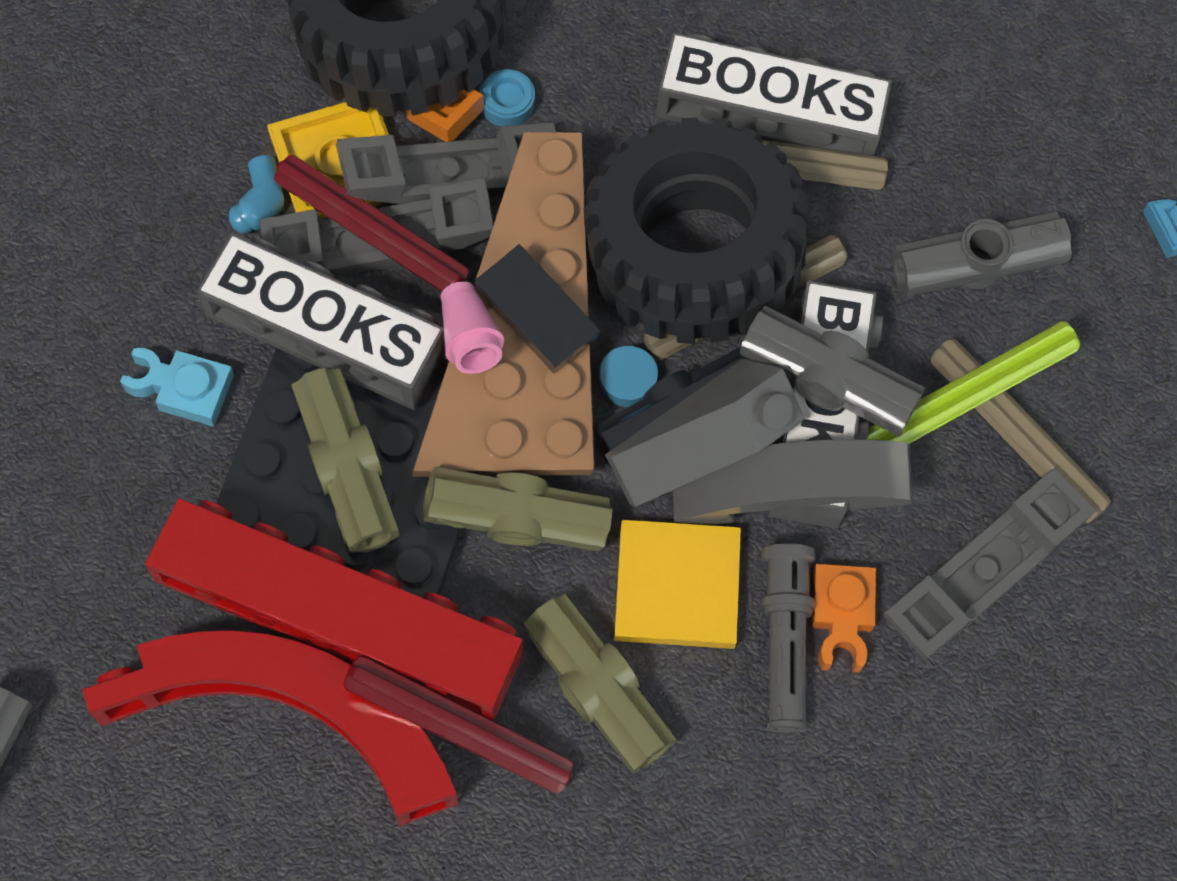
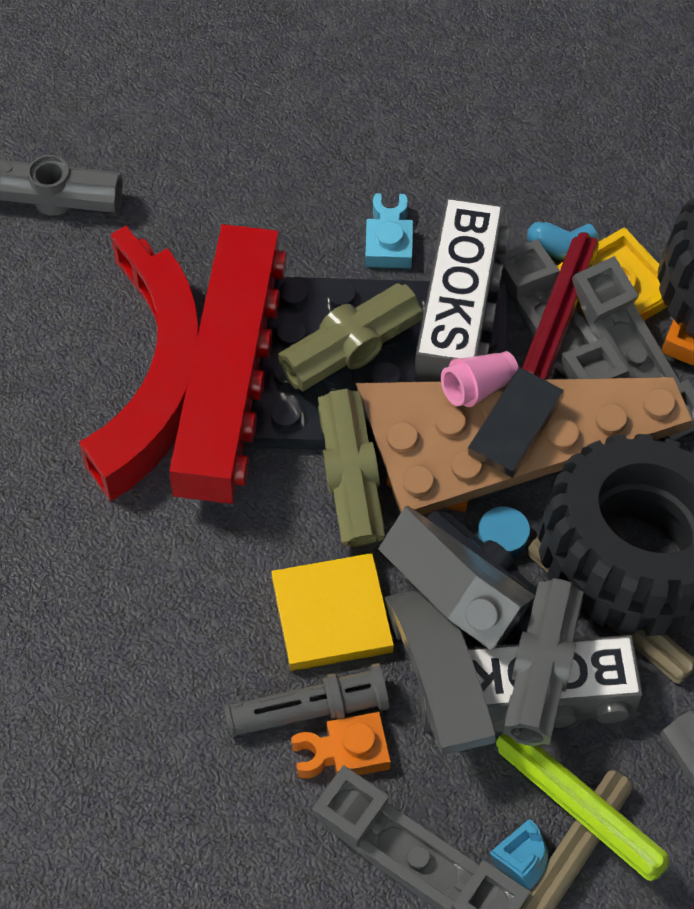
camera: 80 degrees right, 10 degrees down
(457, 724) = (157, 488): dark red axle -> none
(599, 683) = (226, 568): olive piece -> none
(1005, 466) = (522, 855): none -> dark azure tile

